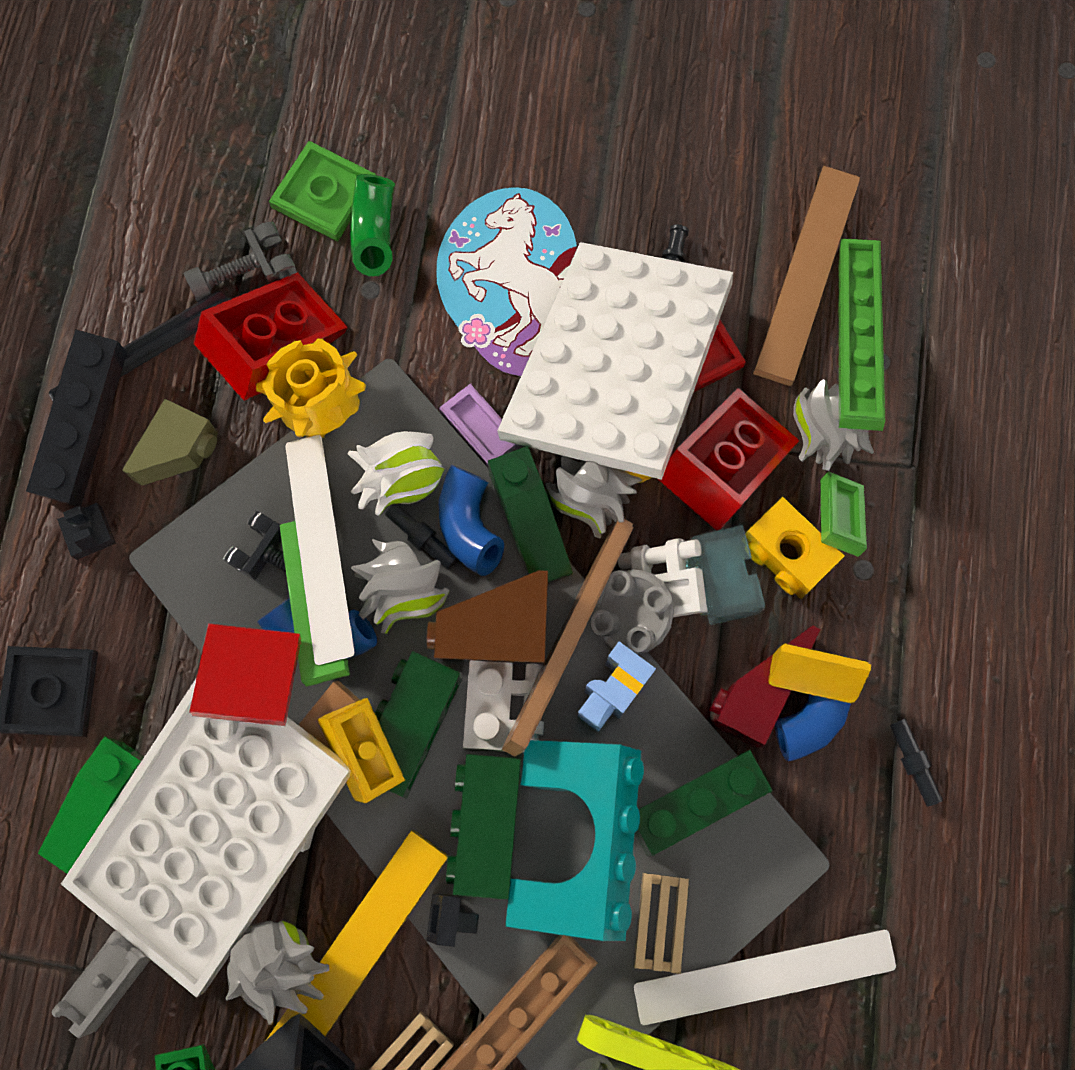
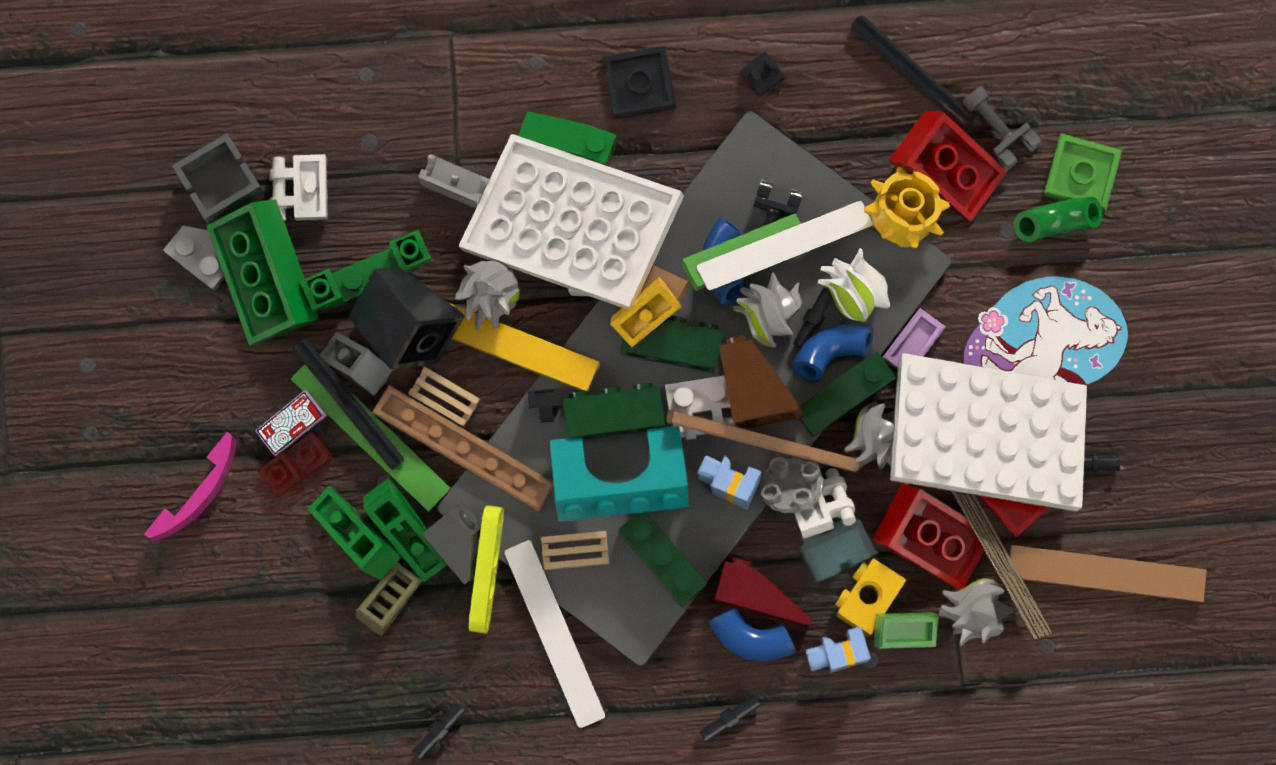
camera: 80 degrees right, 5 degrees up
(77, 418) = (841, 45): black brick -> none
(171, 445) = (841, 117): olive slope -> none
(246, 675) = (678, 220): red tile -> none
(763, 385) = (1003, 564): none -> dark tan sticker
(818, 673) = (773, 625): yellow slope -> none
(861, 336) = (1055, 615): bright green tile -> none
(864, 599) = (840, 655): none -> light blue hips

